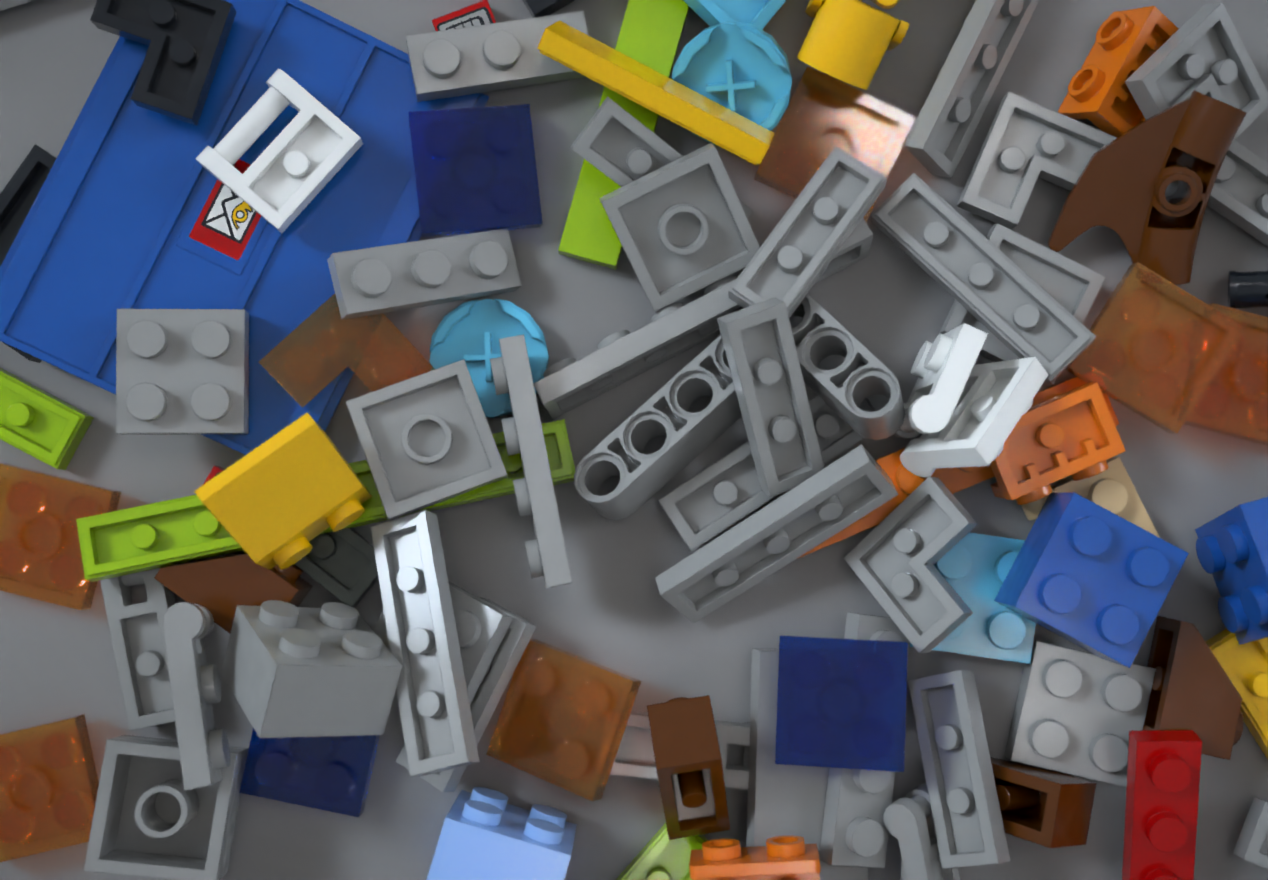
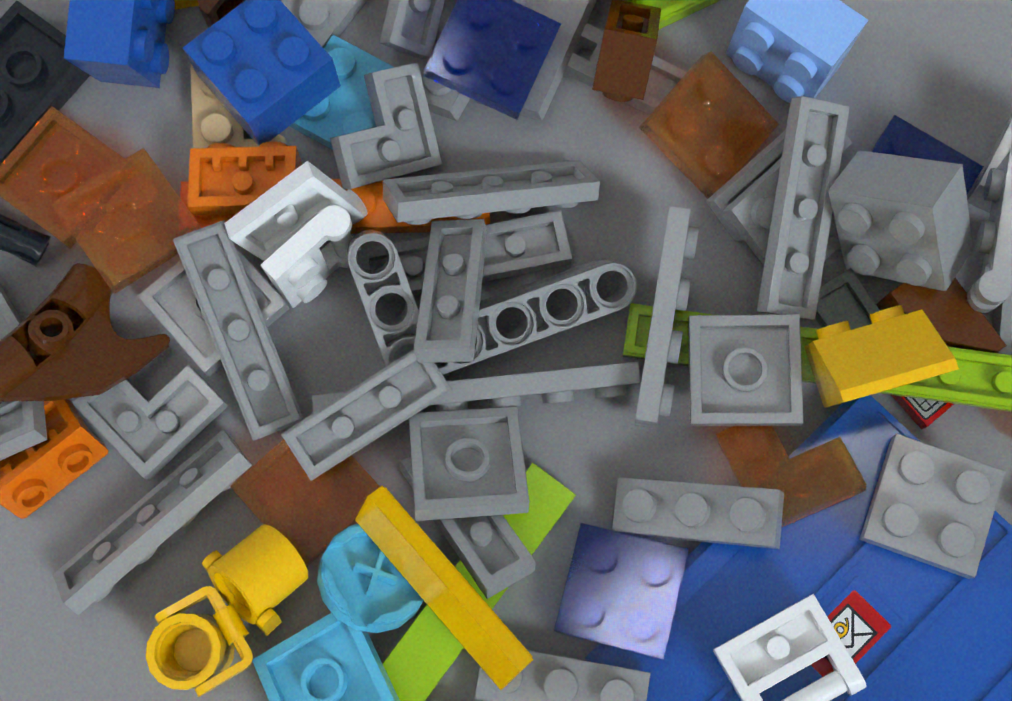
camera: 160 degrees left, 10 degrees down
(474, 335) = (672, 449): medium azure tile -> none

